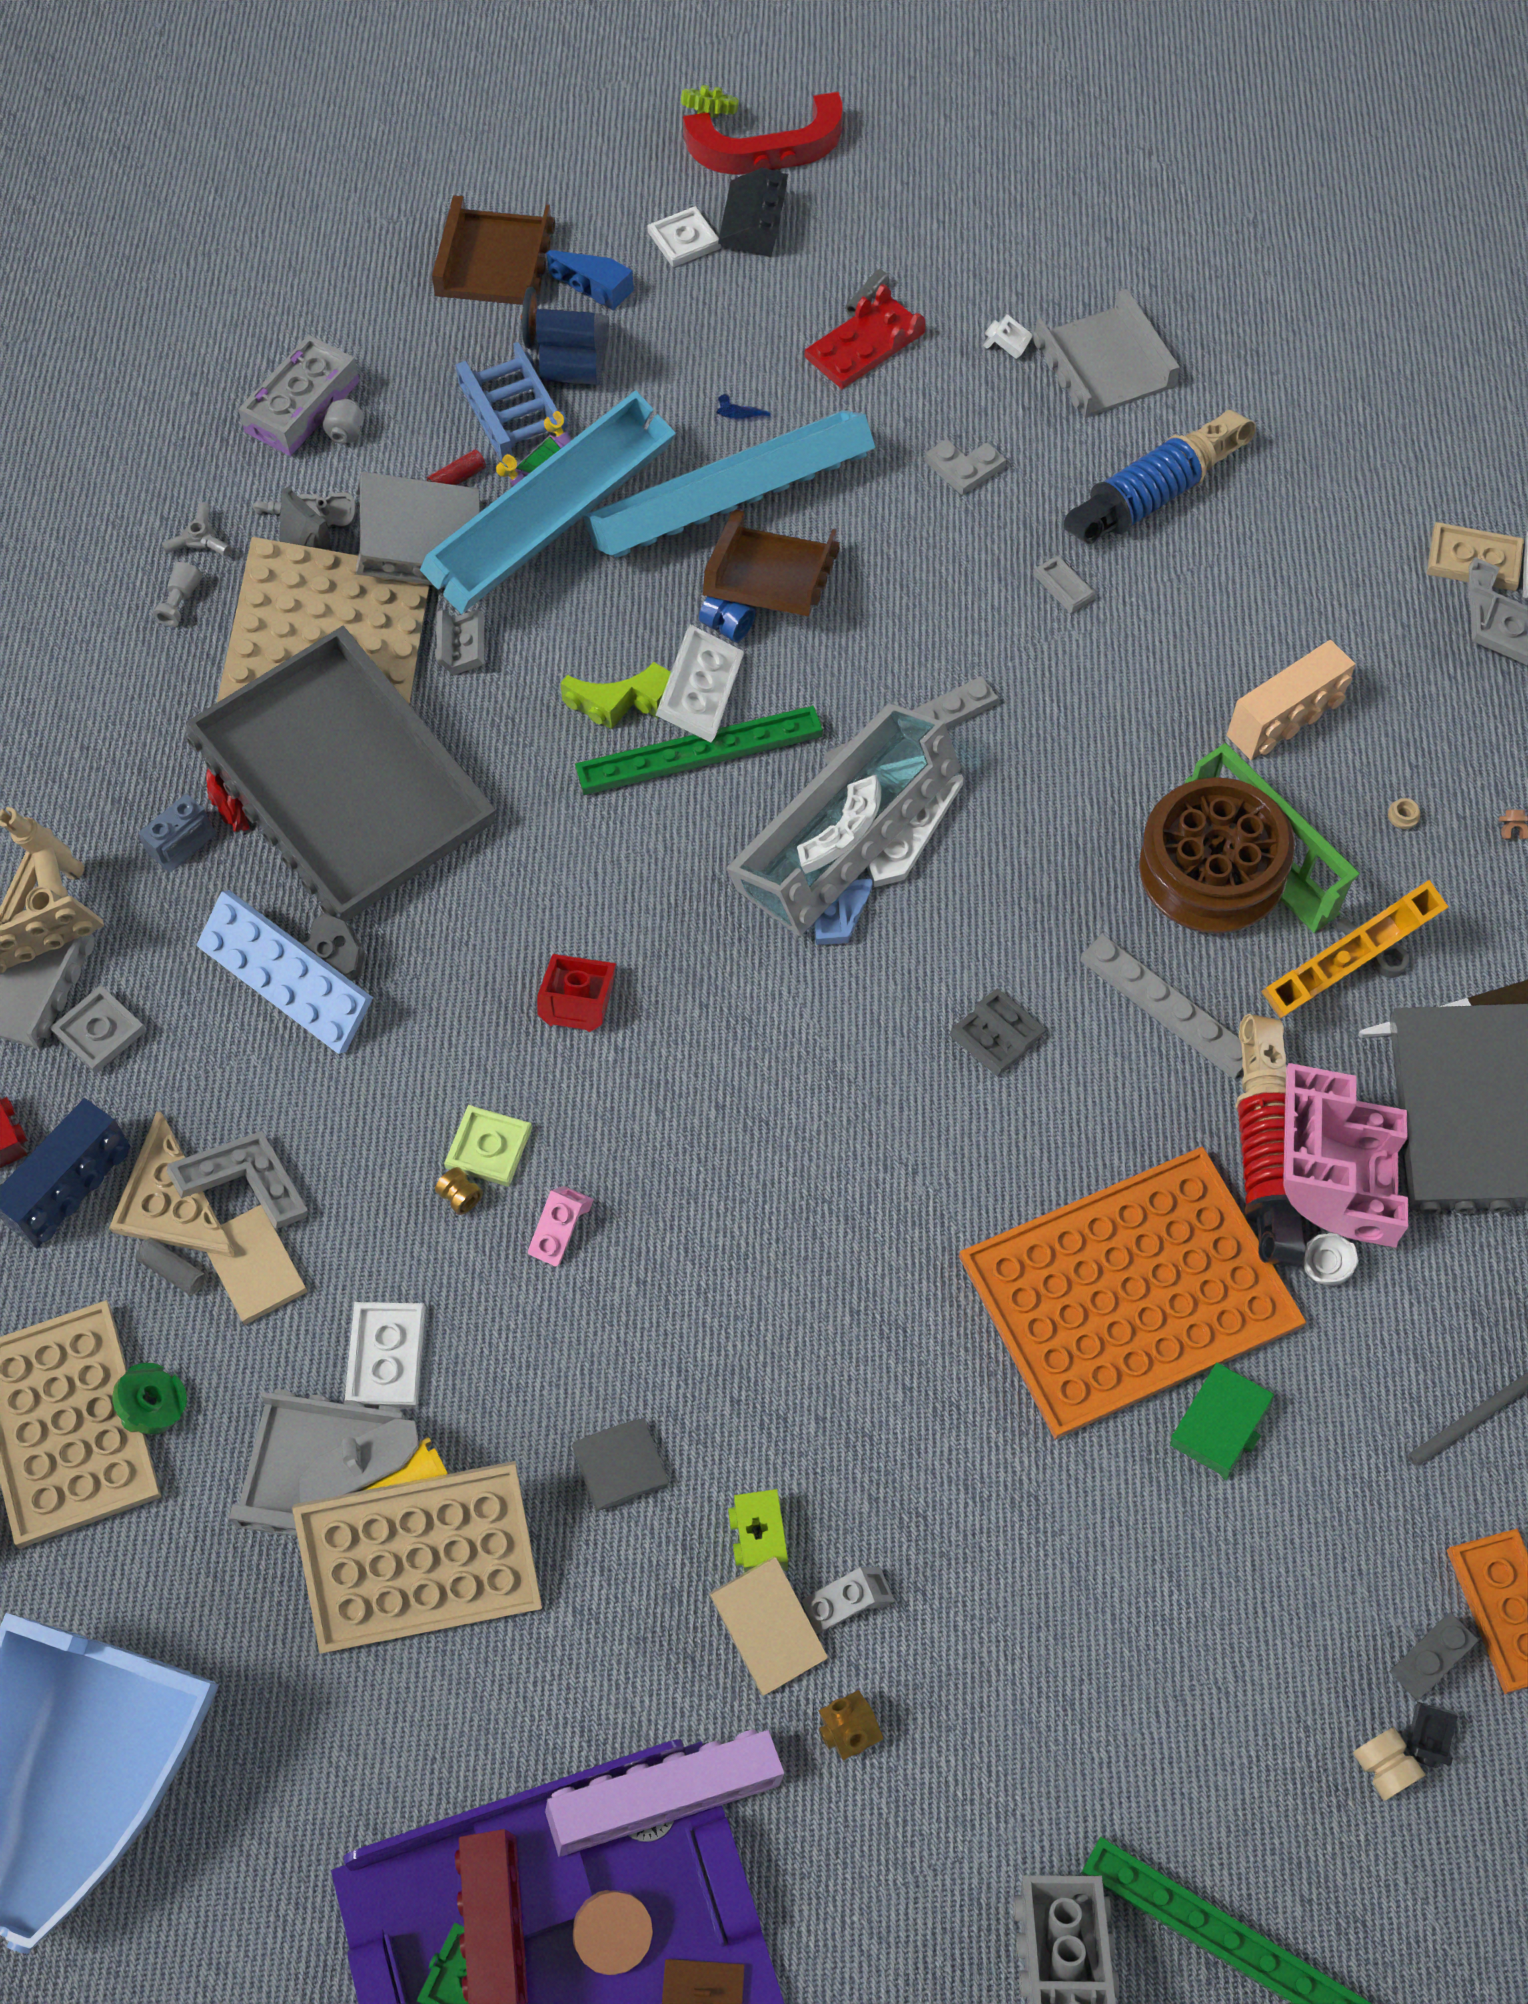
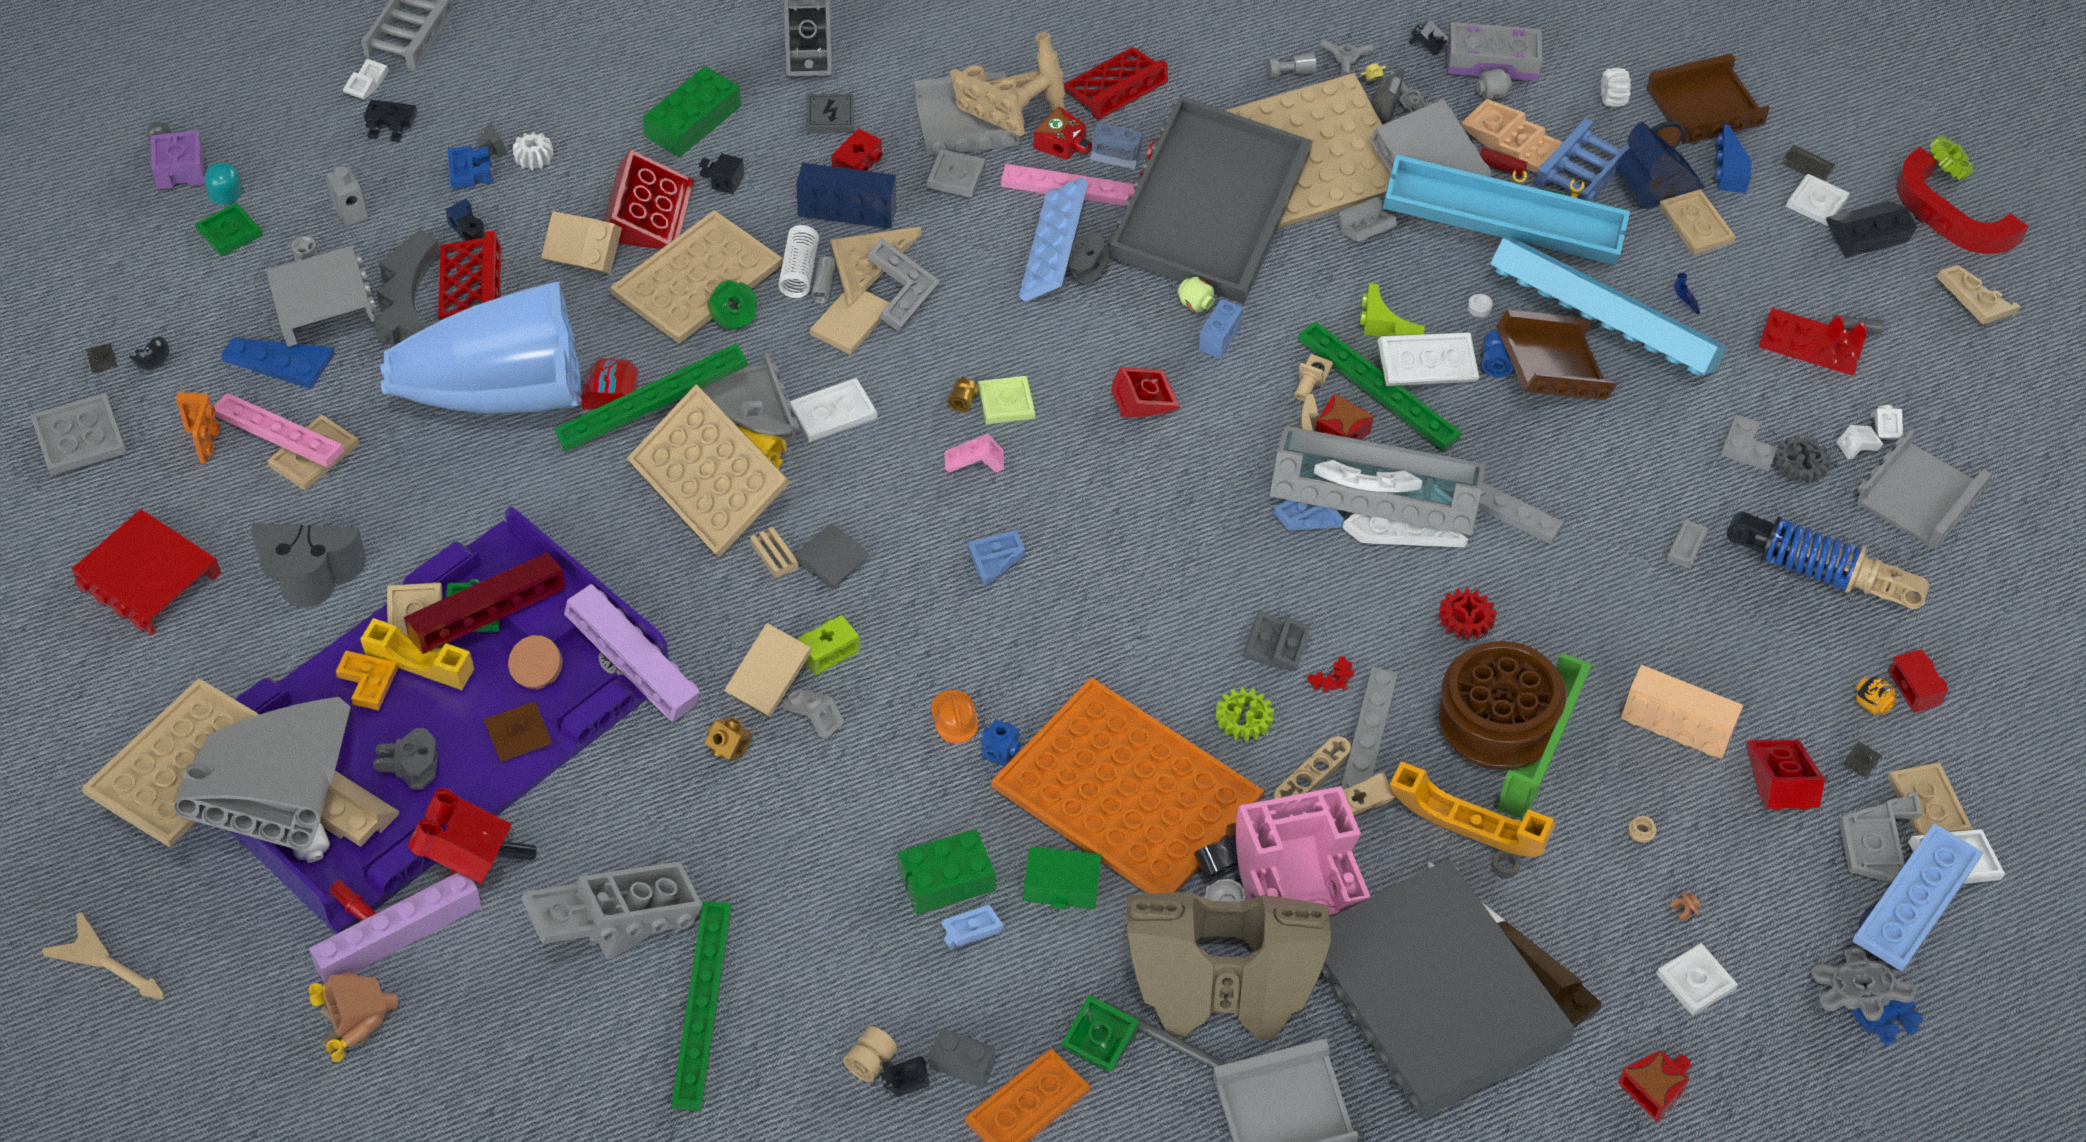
camera: 60 degrees right, 10 degrees down
(94, 773) = (1121, 90): none -> red fence
(105, 1266) = (812, 248): none -> white piece
(120, 882) = (1061, 135): none -> red torso
(178, 1618) = (607, 382): none -> red slope
(190, 920) = (1044, 180): none -> bright pink plate
(227, 442) = (1429, 36): none -> black bracket
(244, 522) = (1373, 72): none -> light yellow plate
(250, 1578) = (650, 397): none -> green plate
(424, 445) = (1510, 134): none -> light nougat slope
(427, 317) = (1615, 87): none -> white gear
(461, 863) = (1196, 294): none -> yellowish green head
(527, 863) = (1220, 328): none -> medium blue brick
(573, 1518) = (765, 537): none -> tan tile
(631, 218) = (1807, 163): none -> clear smoke tile
(641, 598) = (1480, 305): none -> white tile
(647, 350) = (1697, 221): none -> tan tile
(651, 809) = (1311, 376): none -> tan bracket
(703, 840) = (1309, 414): none -> tan slope
(721, 1271) = (995, 554): none -> medium blue wing
(733, 813) = (1344, 419): none -> torso
(893, 182) = (1980, 301): none -> tan wing
(929, 1432) = (954, 716): none -> orange piece
(1005, 1408) = (1000, 742): none -> blue brick
(1016, 373) = (1857, 439): none -> white bracket
(1030, 432) = (1792, 462): none -> dark grey gear
(1063, 827) = (1467, 614): none -> red gear
(1073, 988) = (1342, 671): none -> red animal
(1105, 1114) = (1231, 719): none -> lime gear
(1164, 1549) = (946, 871): none -> green piece
(1190, 1088) = (1310, 773): none -> tan beam
(1254, 1557) = (971, 926): none -> light blue plate
(1335, 485) = (1918, 680): none -> red brick
(1335, 528) = (1876, 695): none -> light orange head
(1397, 652) = (1785, 774): none -> red slope
(1405, 581) = (1862, 759): none -> clear smoke plate
(1441, 1352) = (1189, 984): none -> dark tan piece
(1459, 1481) = (1100, 1034): none -> green slope

